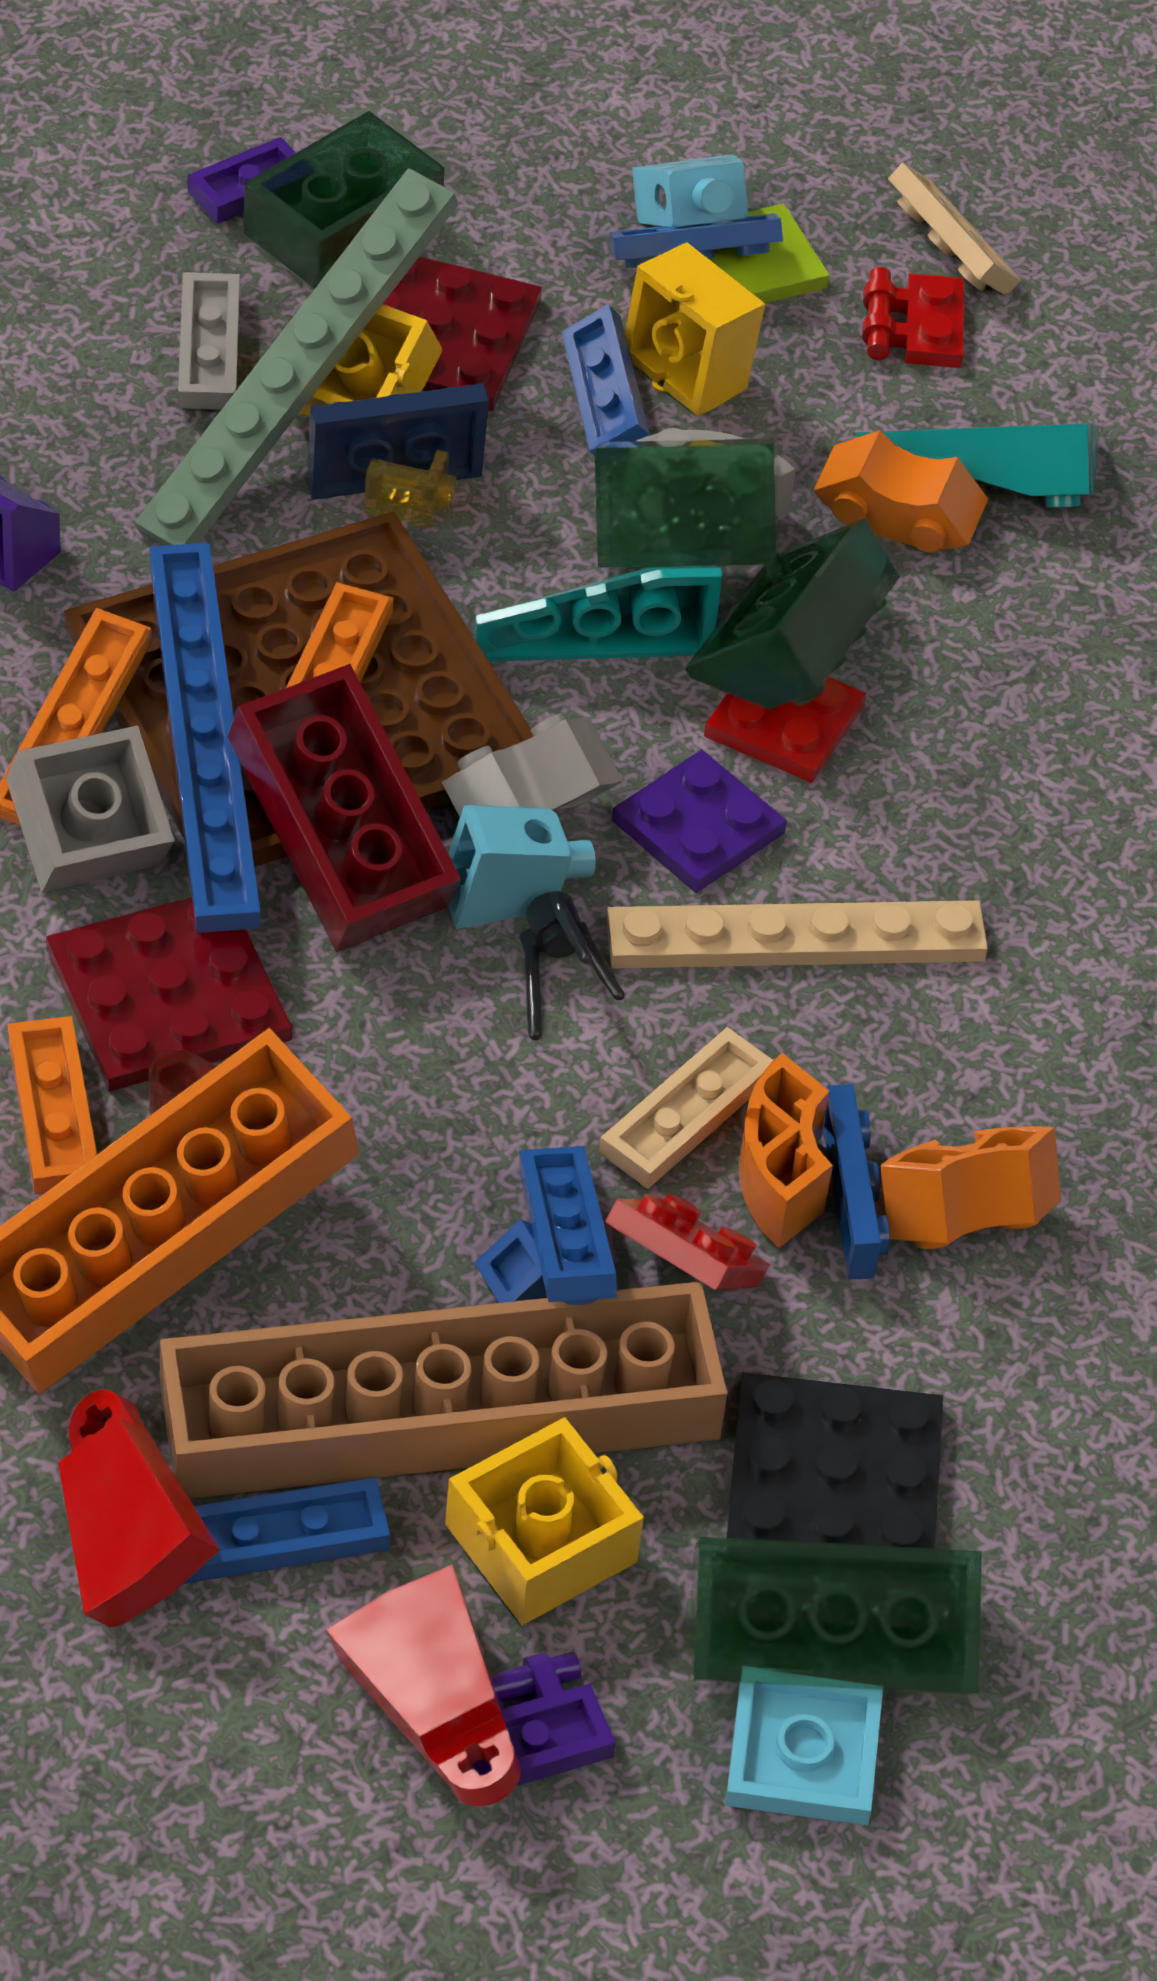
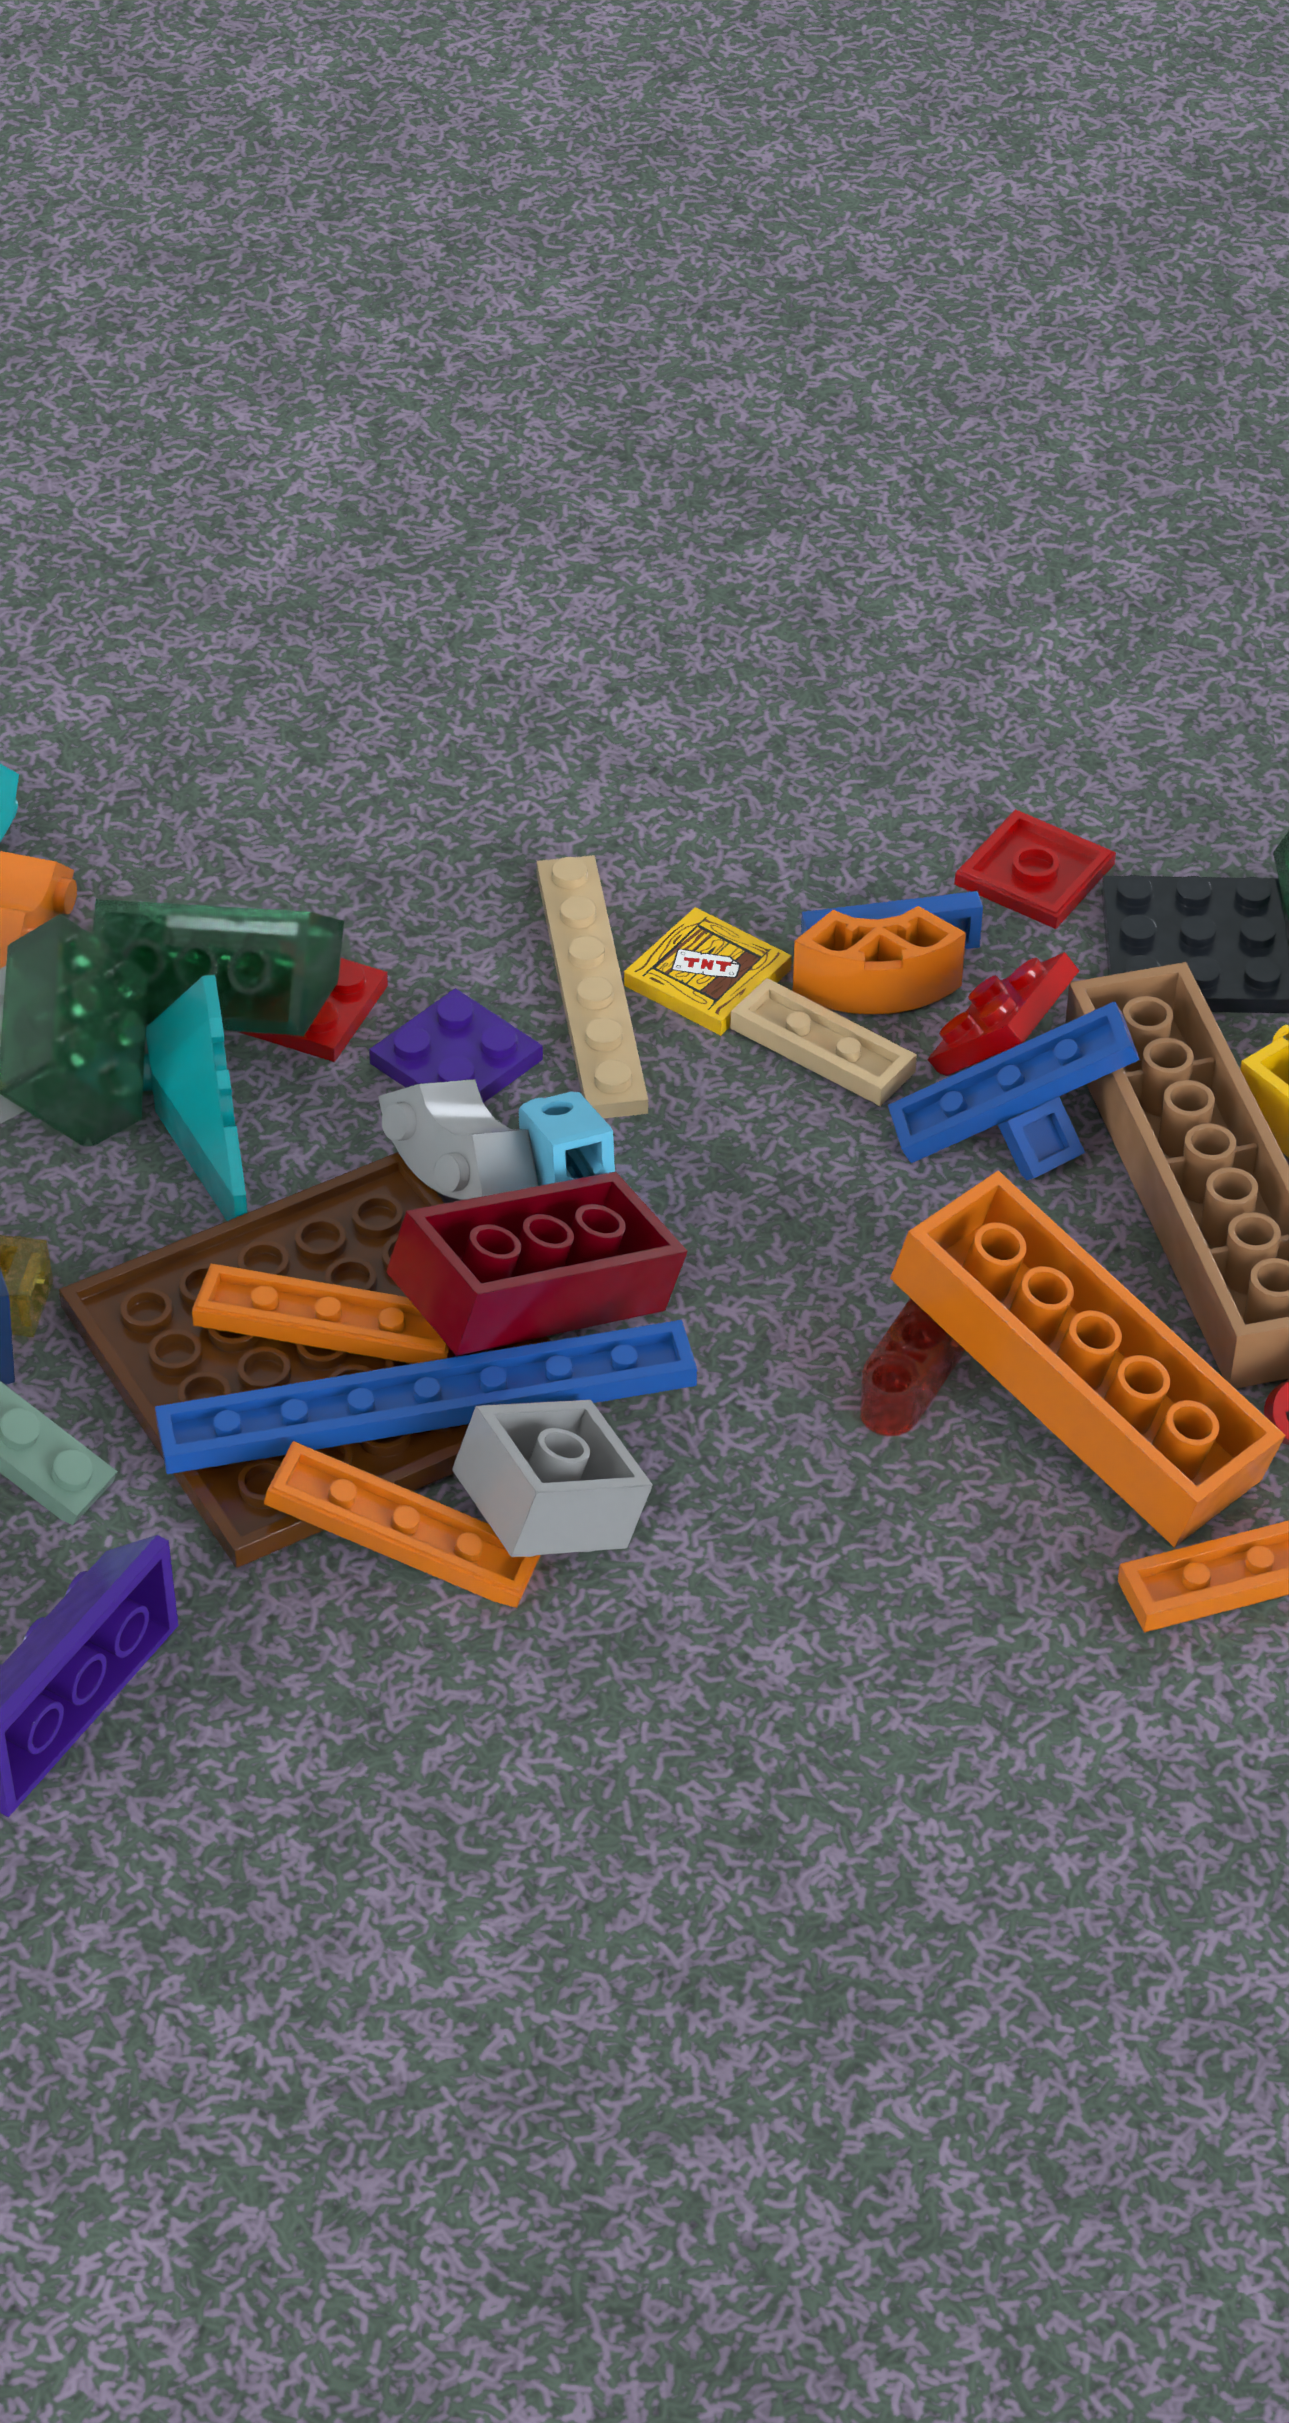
camera: 90 degrees left, 5 degrees down
(51, 1099) = (920, 1495): orange plate -> none
(161, 987) = (748, 1434): dark red plate -> none
(559, 933) = (631, 1136): black plant -> none
(817, 1024) = (705, 969): none -> yellow tile
(952, 1190) = (886, 838): orange brick -> none
(968, 1343) = (1035, 868): none -> red tile

